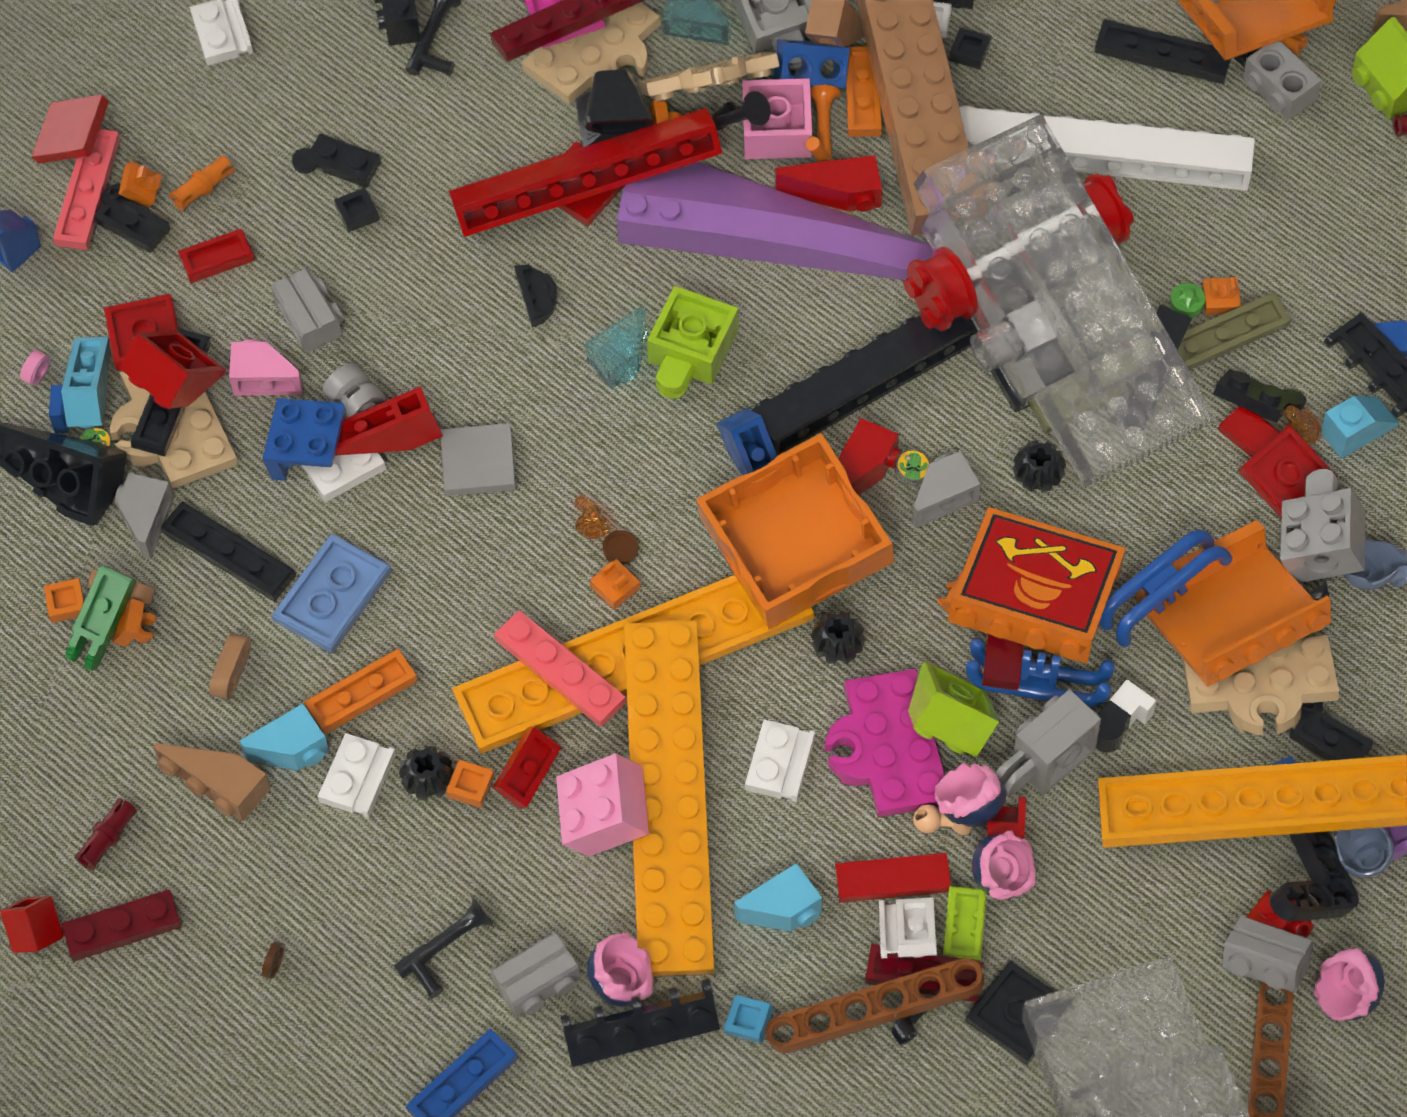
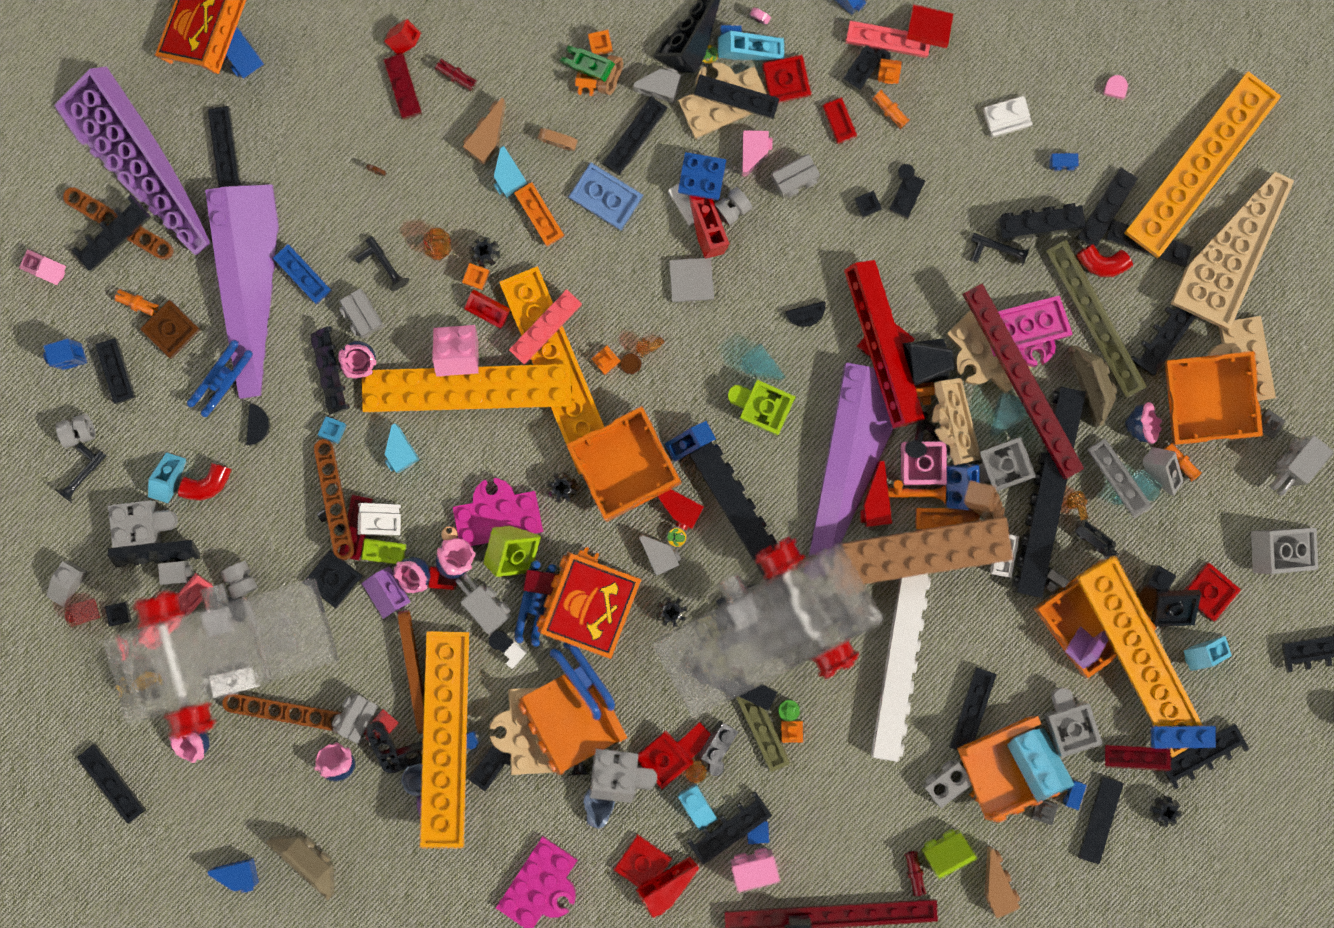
camera: 90 degrees right, 25 degrees up
(170, 368) = (745, 95): red slope -> none
(356, 775) = (489, 213): white plate -> none
(410, 849) = (437, 243): none -> clear orange head
(779, 760) = (489, 452): white plate -> none
(892, 877) = (415, 513): red tile -> none
(970, 48) = (978, 587): black plate -> none
(1039, 920) = (385, 592): none -> medium lavender panel
(1174, 866) = (412, 667): none -> dark orange beam

